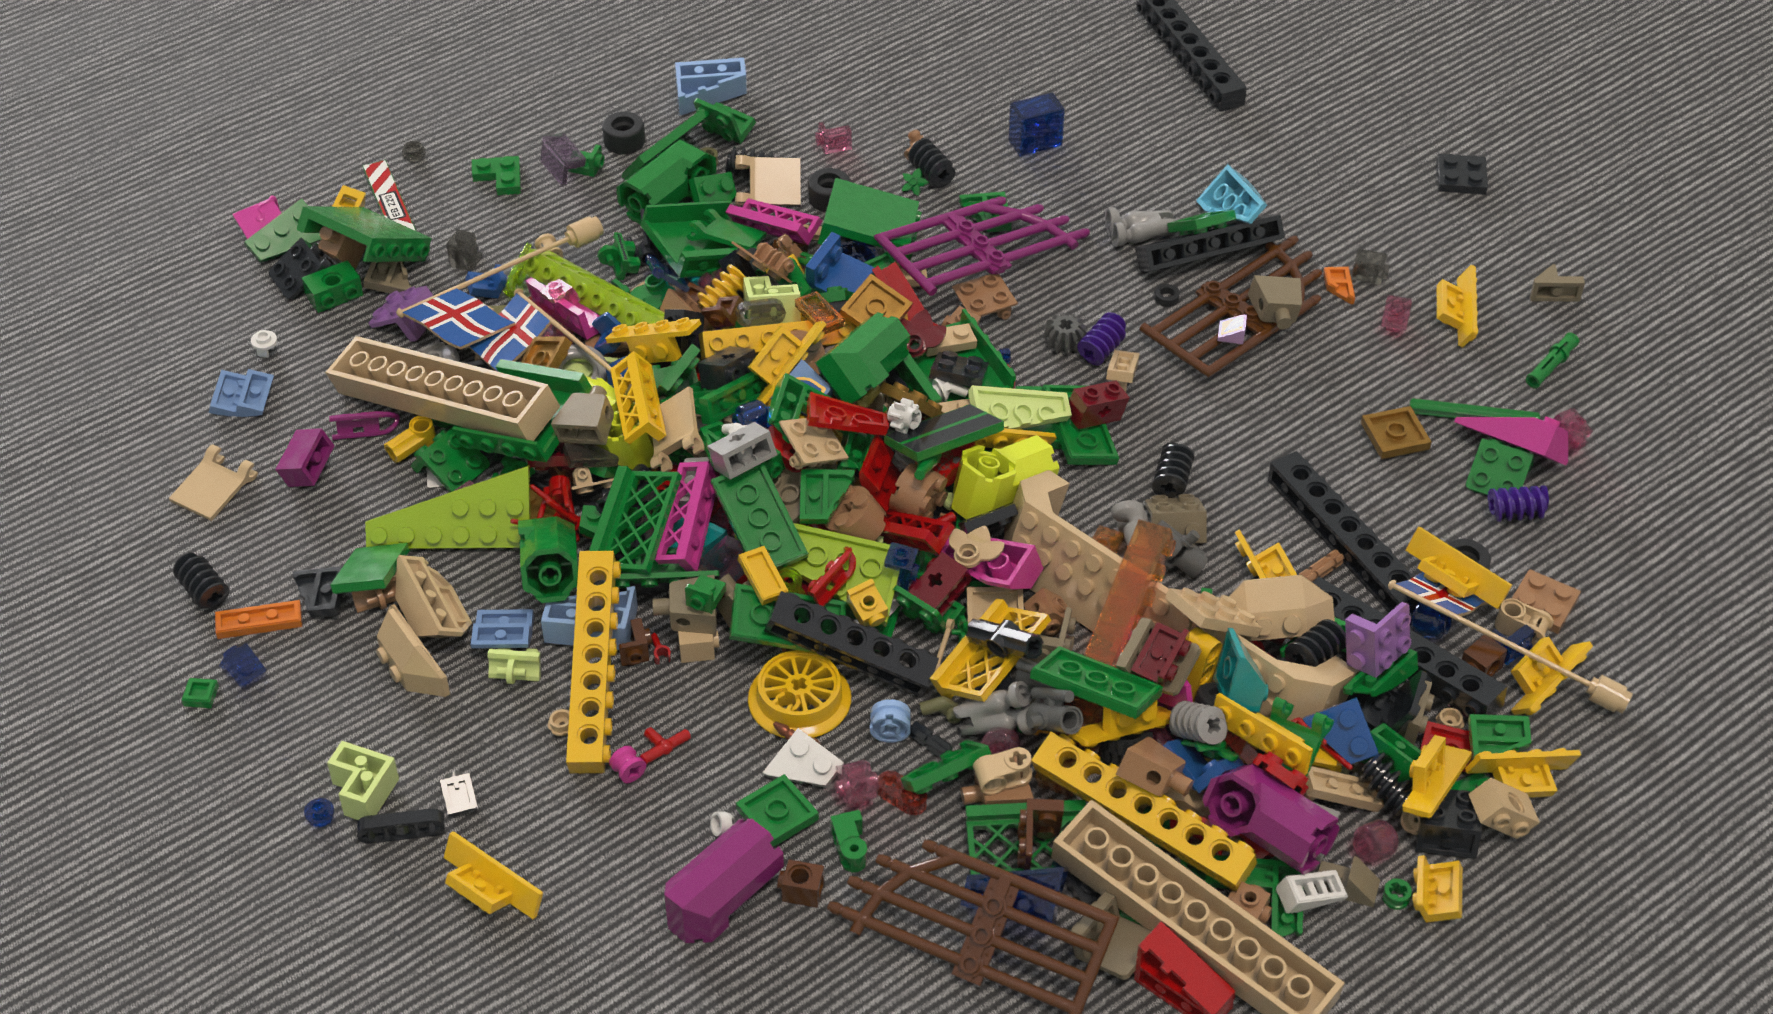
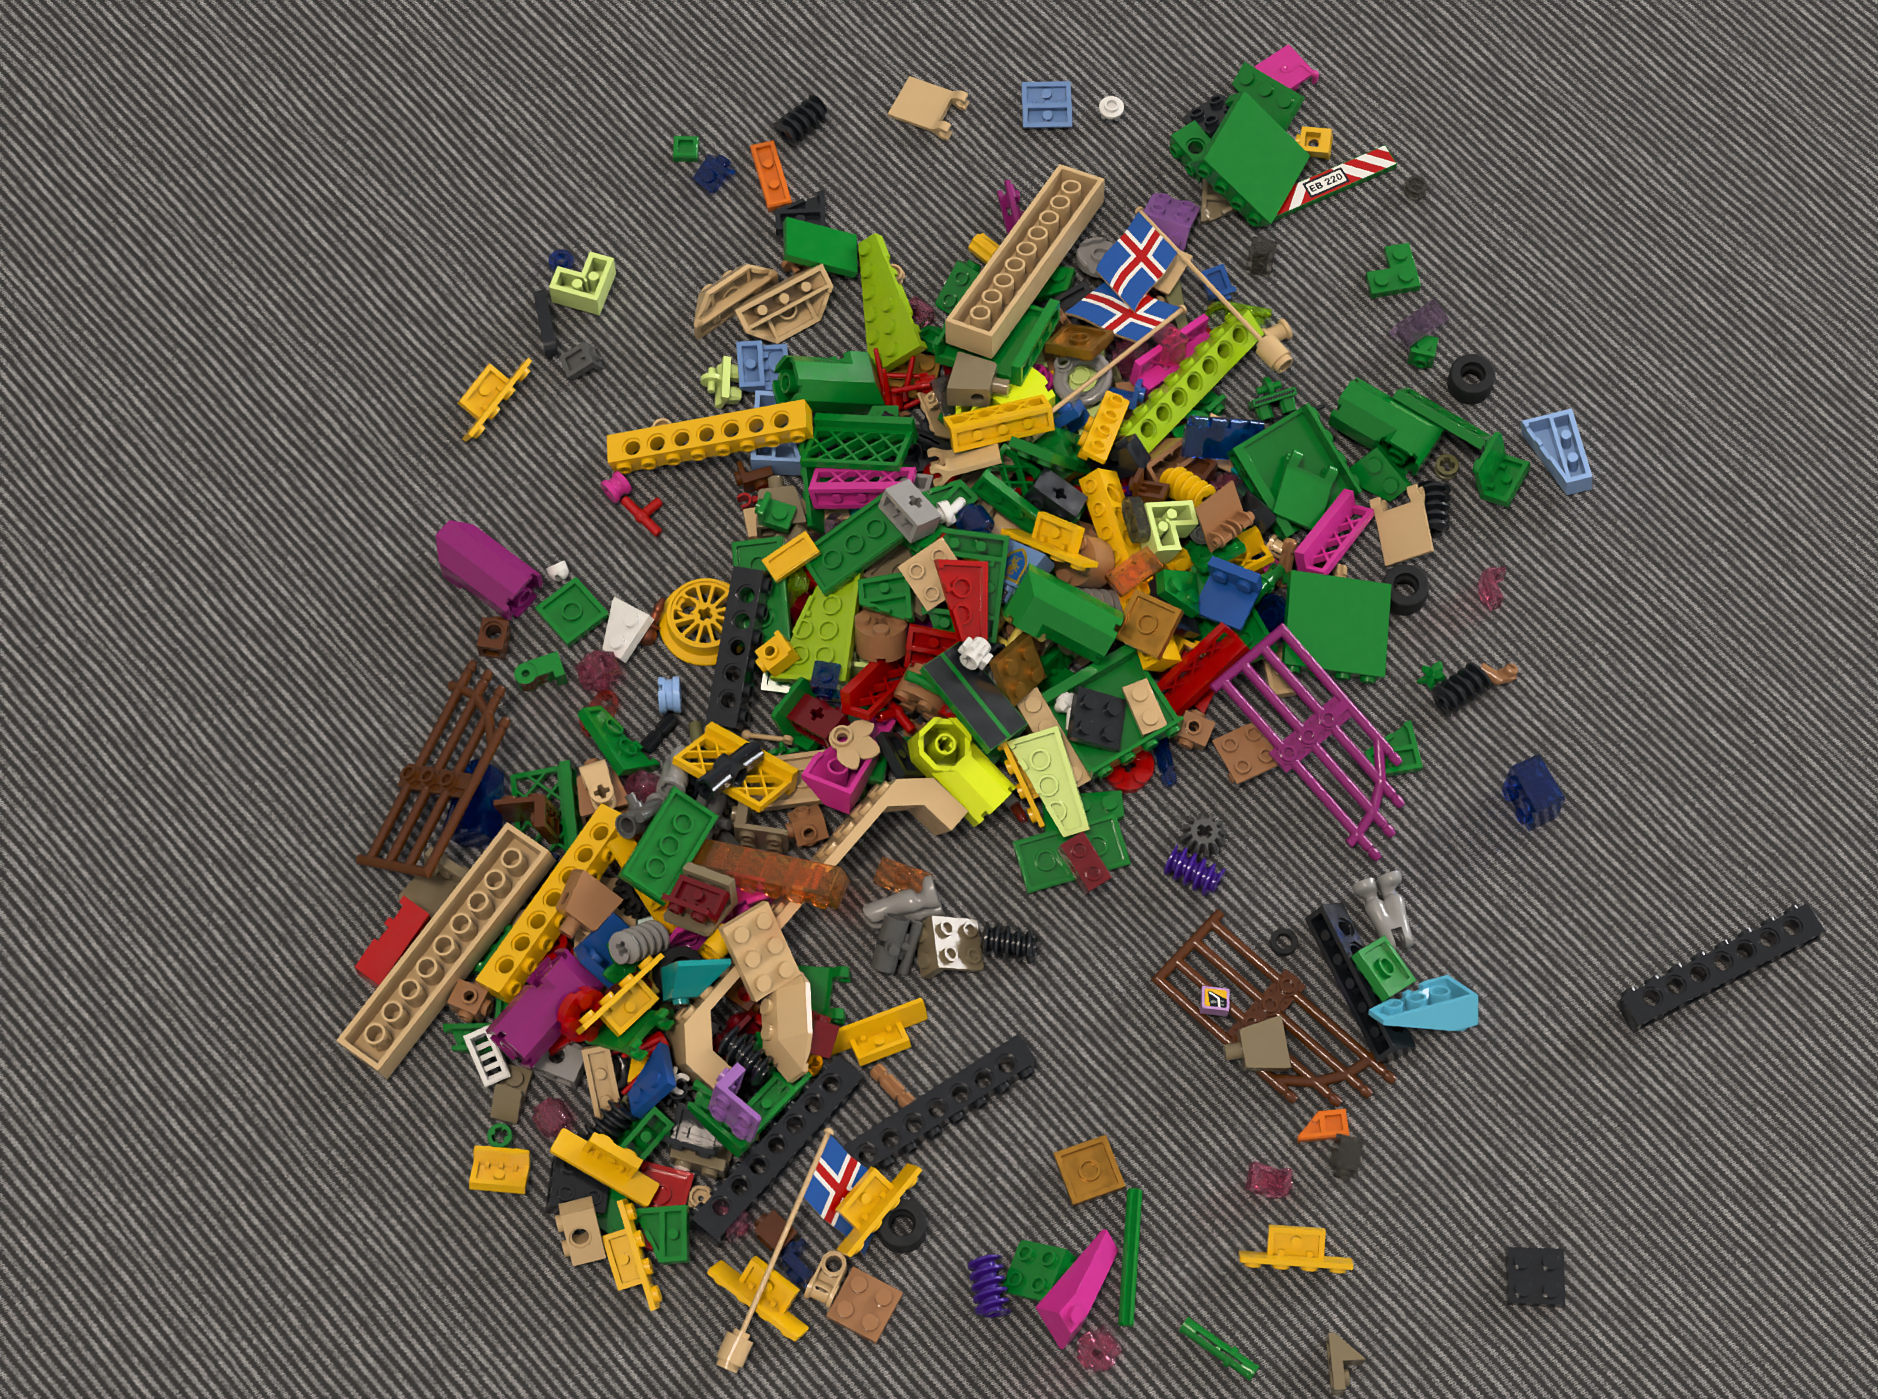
camera: 85 degrees right, 20 degrees up
(305, 457) = (956, 171): magenta brick -> none
(835, 573) = (808, 619): red piece -> none
(923, 332) = (1138, 674): dark red plate -> none
(1123, 367) = (1145, 889): tan piece -> none

